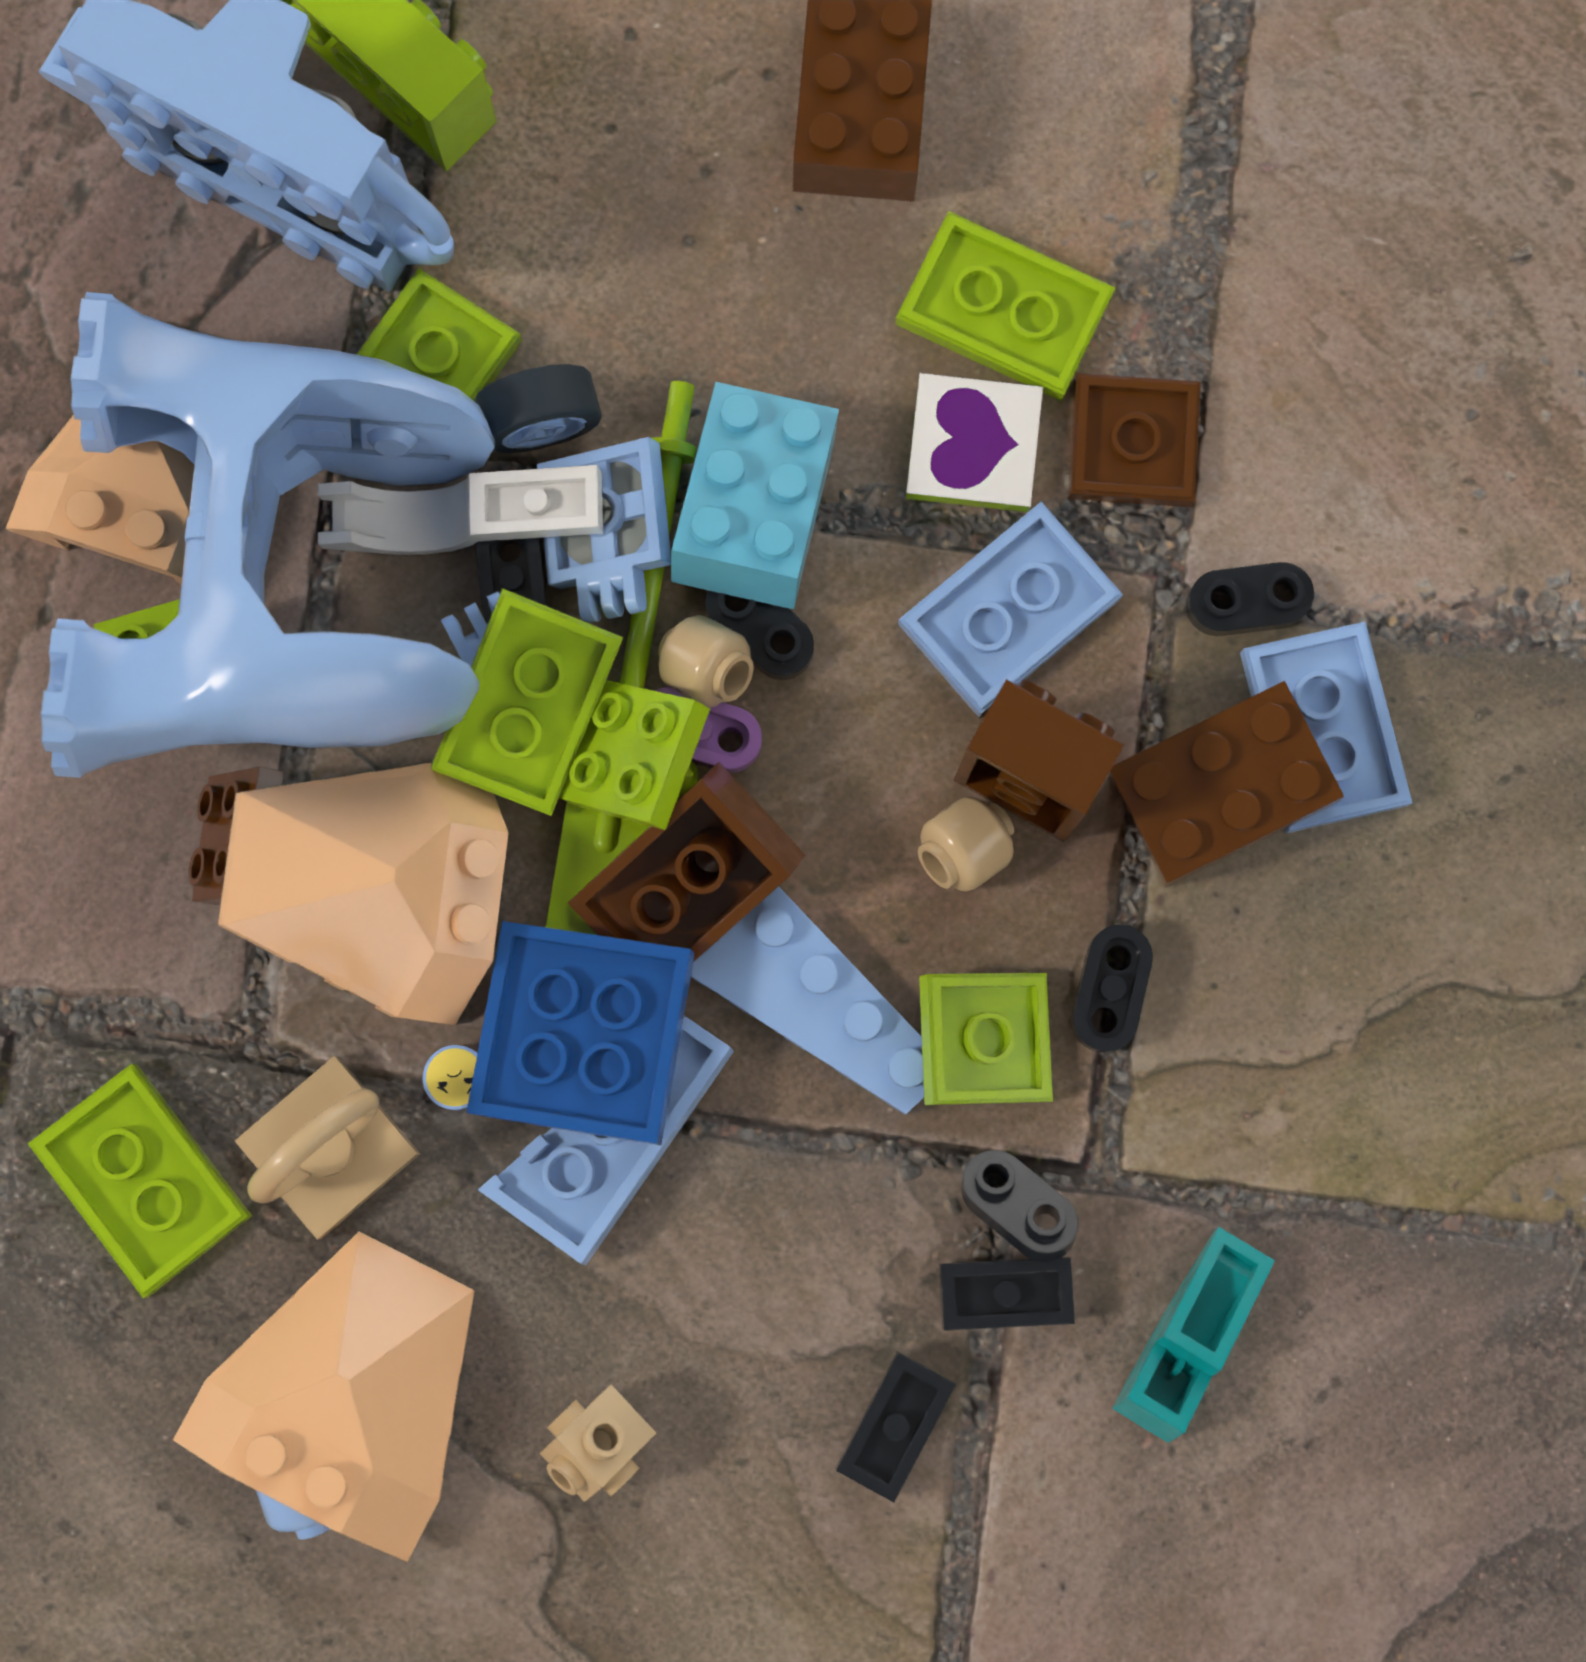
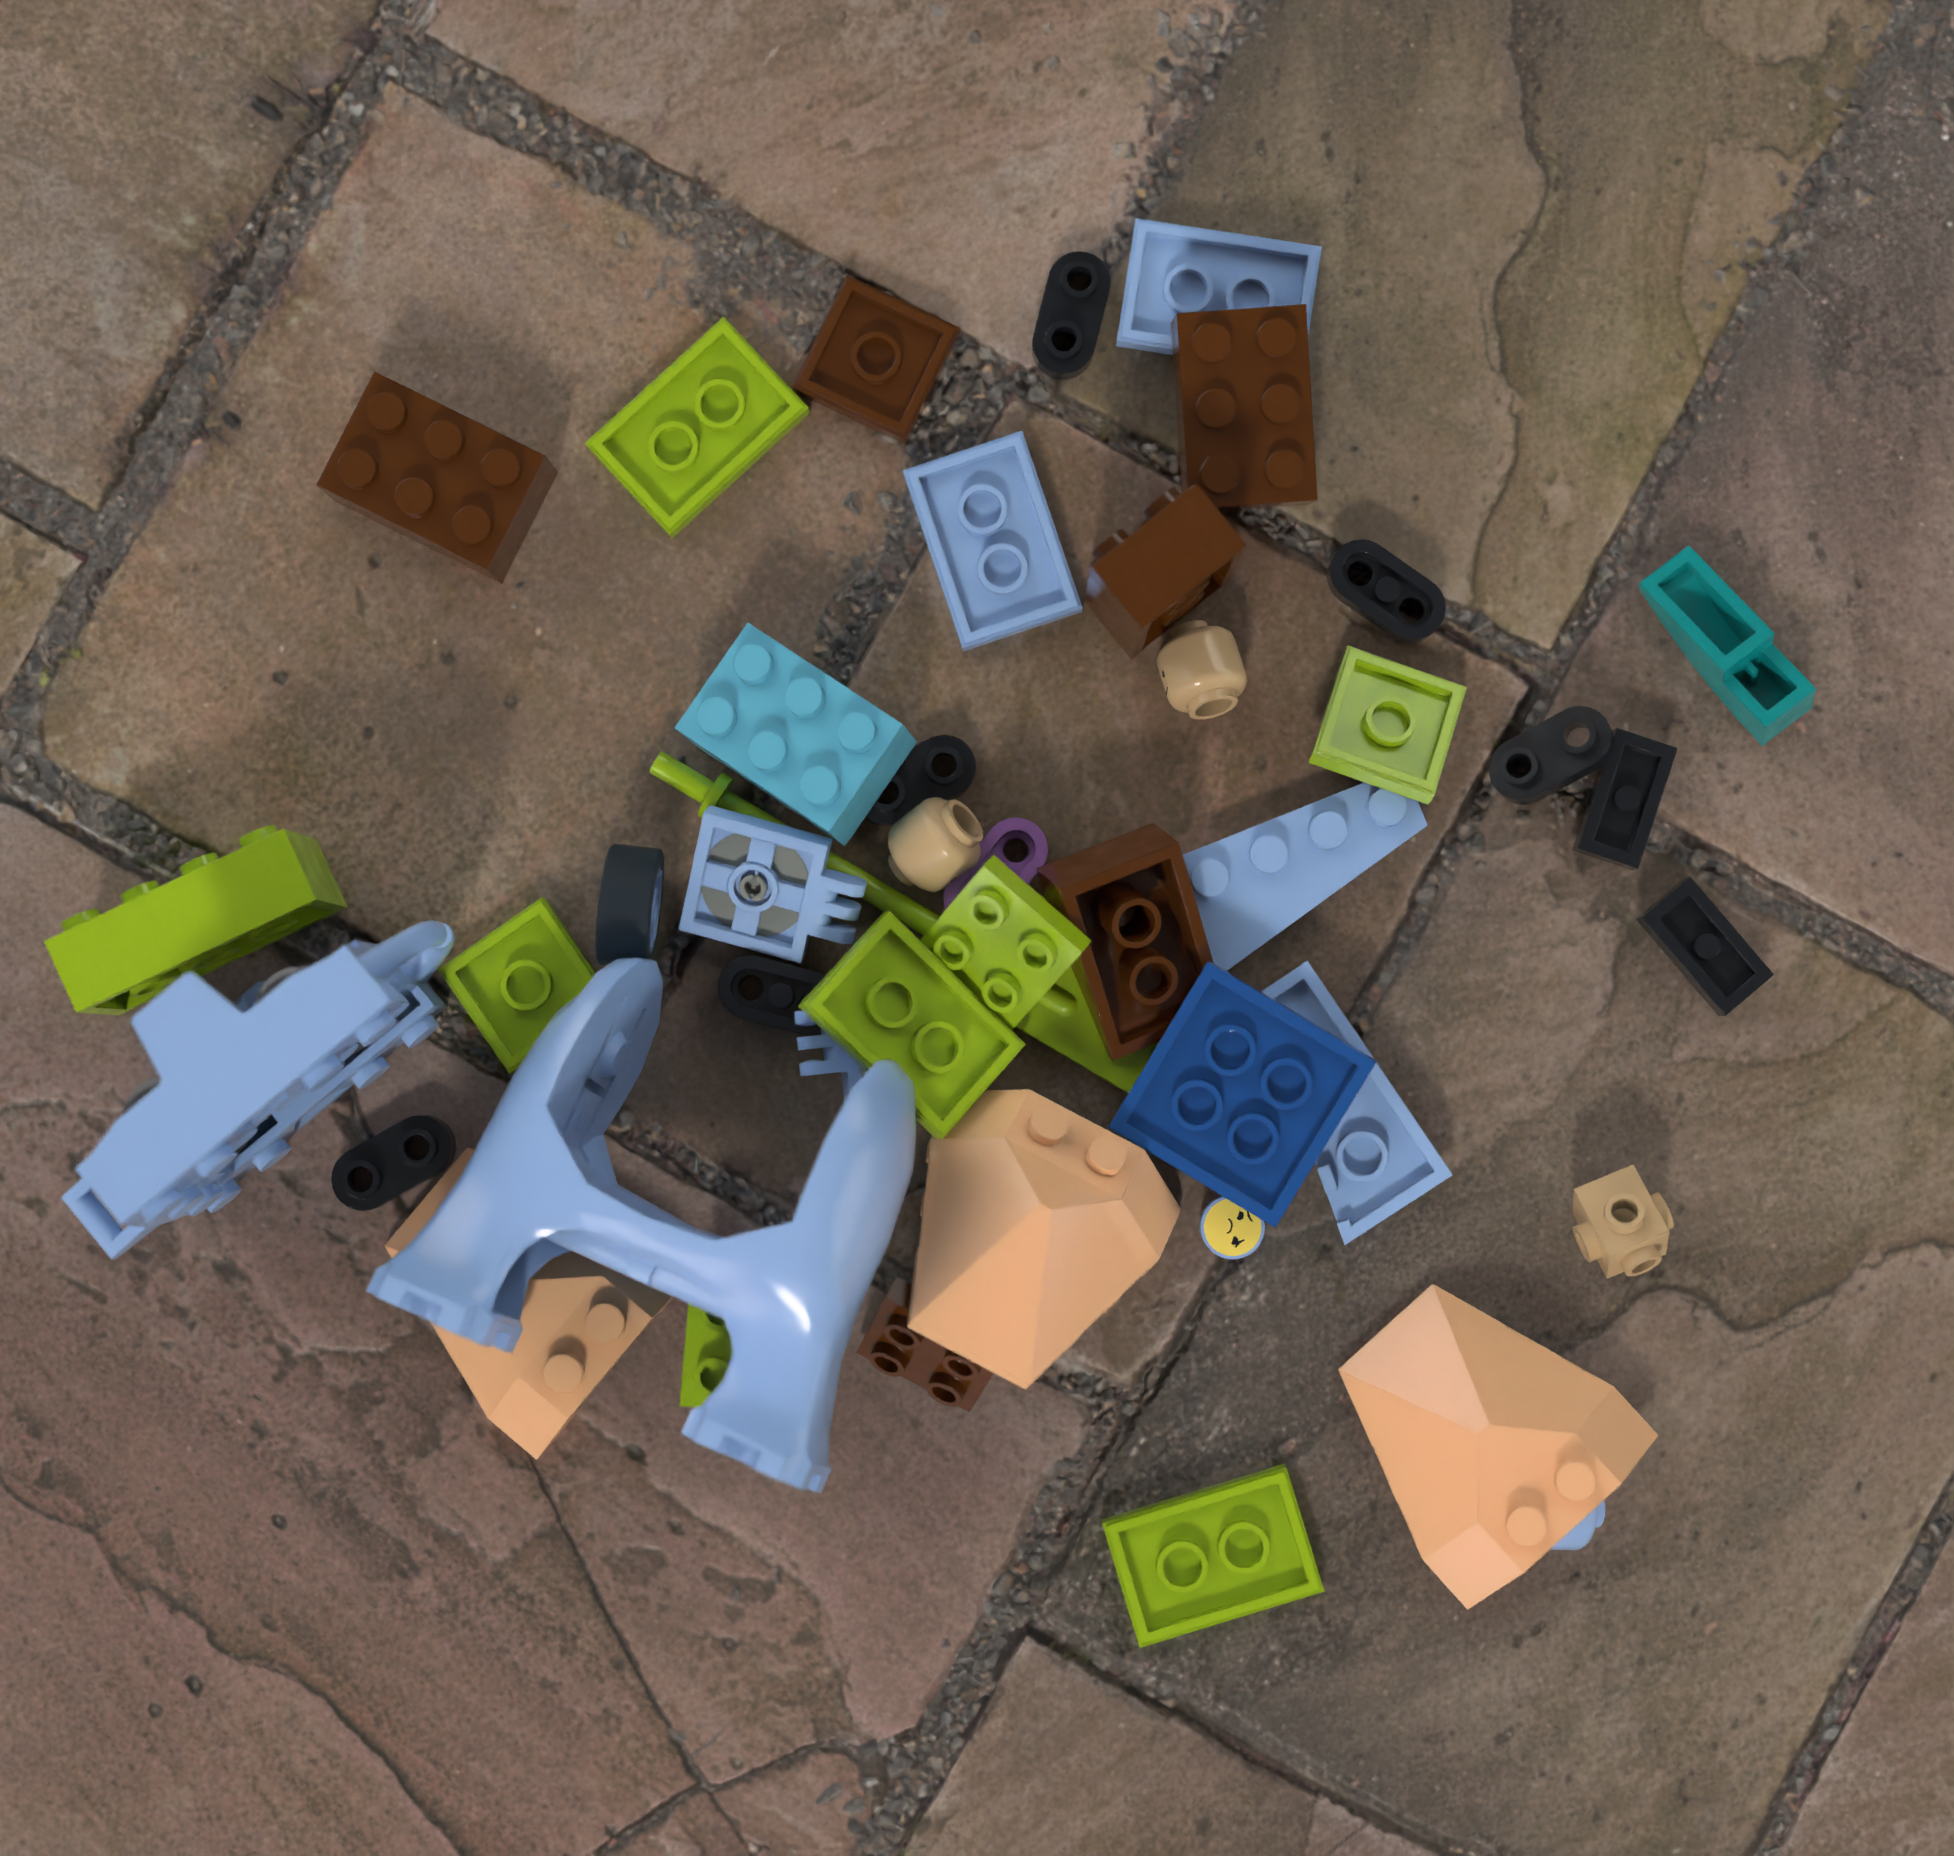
camera: 60 degrees left, 5 degrees up
(227, 296) = (392, 1163): none -> black plate
(325, 1149) = (1251, 1372): tan tile -> none
(458, 516) = (700, 1014): white piece -> none
(974, 442) = (819, 510): tile -> none

